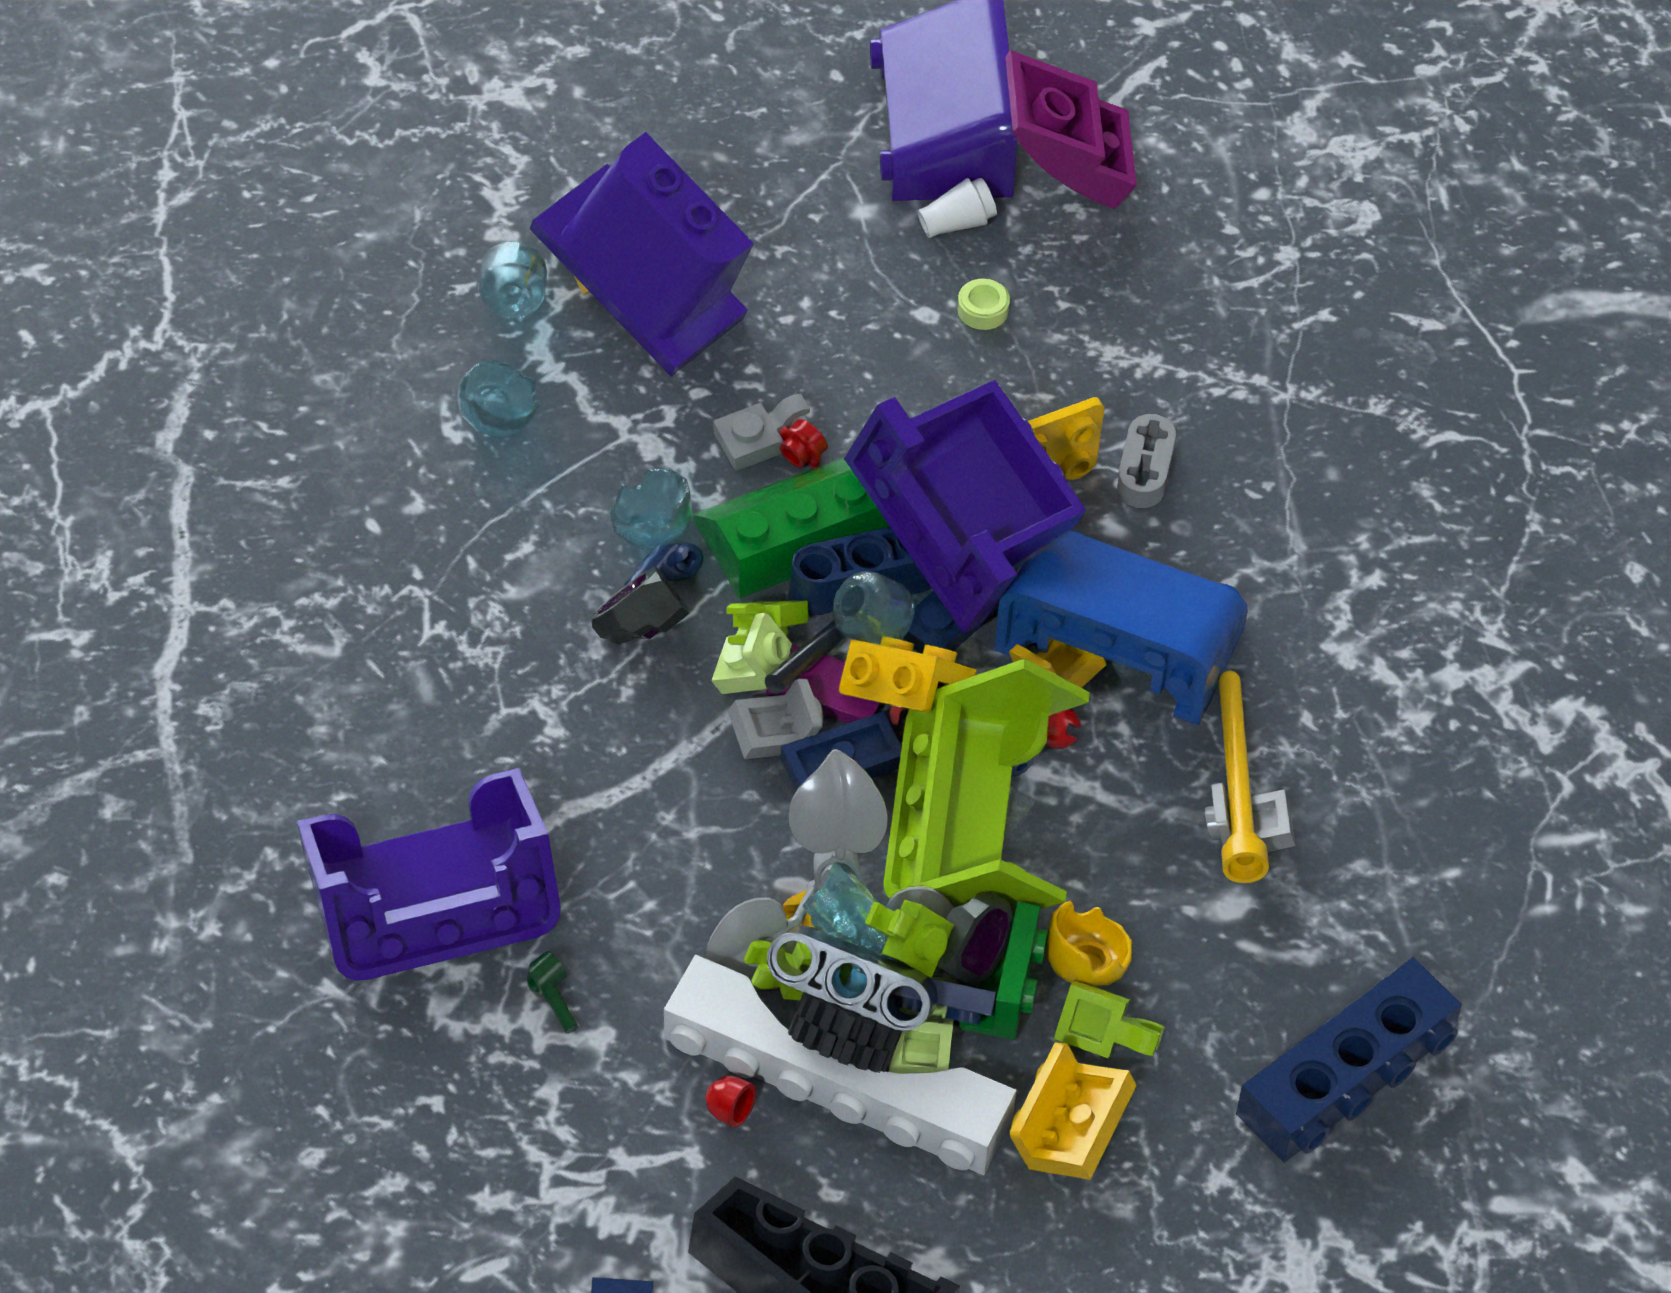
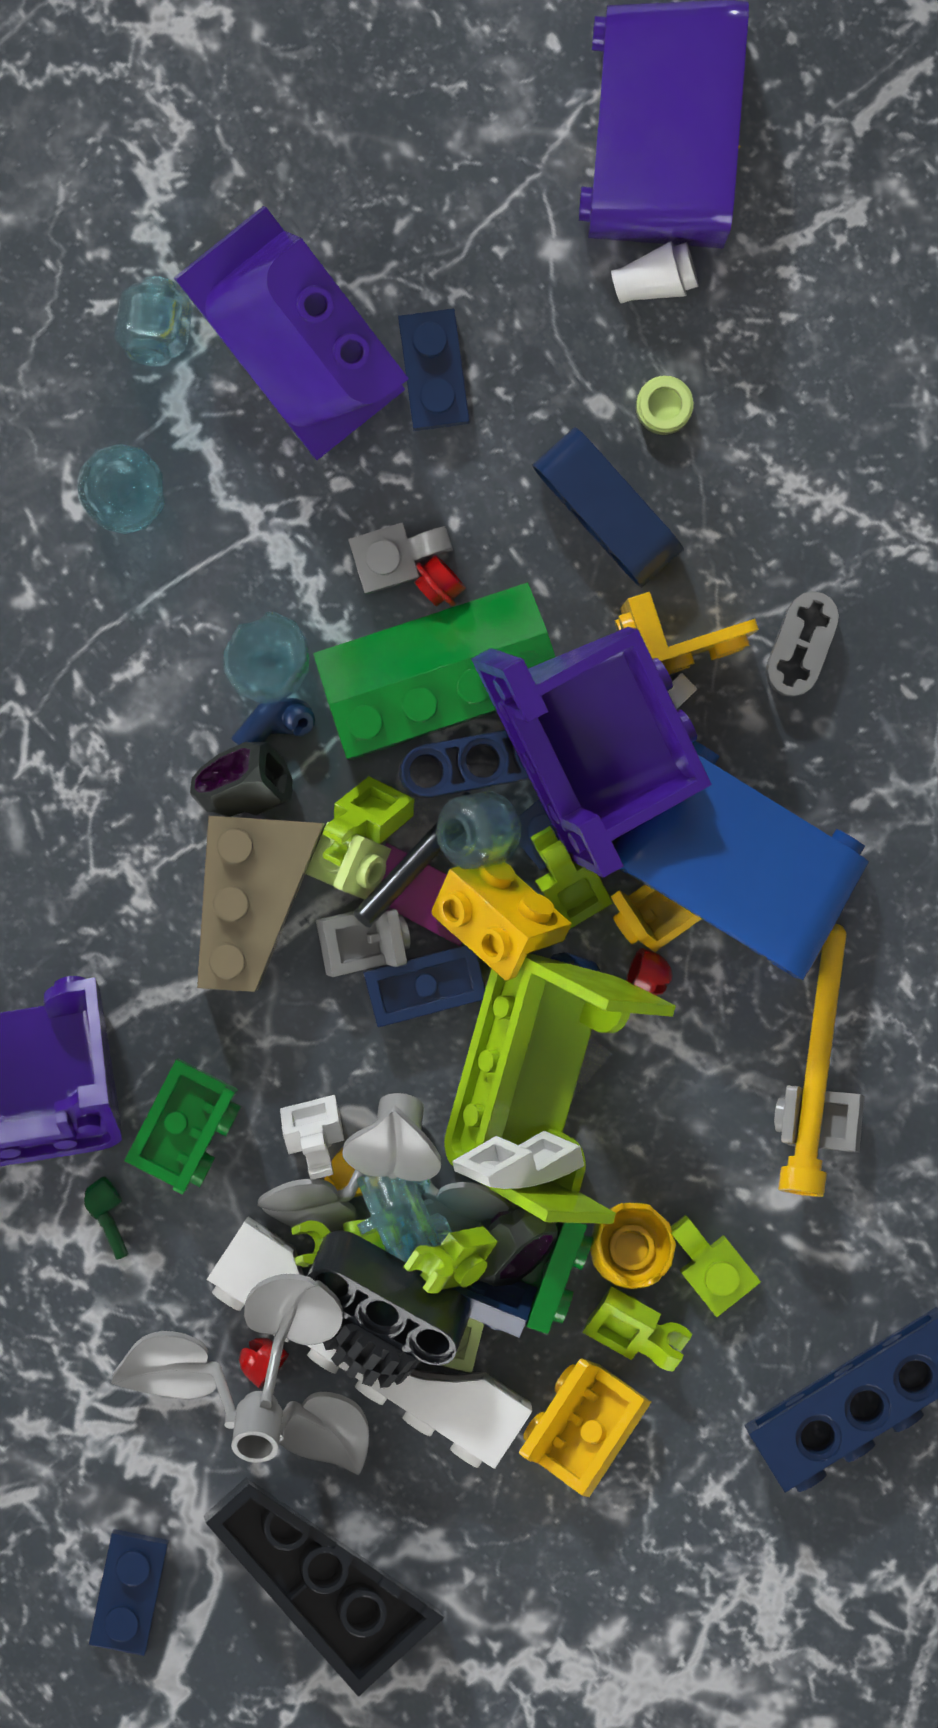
camera: 15 degrees right, 35 degrees up
(621, 897) = (183, 1126): none -> green bracket
(662, 691) = (248, 894): none -> dark tan wedge
(754, 879) = (313, 1129): none -> white plate
(772, 300) = (433, 369): none -> dark blue plate
(800, 1148) = (287, 1306): none -> light grey plant
(937, 362) = (608, 507): none -> dark blue beam
(954, 855) = (514, 1166): none -> white slope
(973, 647) = (570, 887): none -> lime plate
(1071, 129) = (795, 205): magenta slope -> none
(1174, 971) = (715, 1269): none -> lime plate

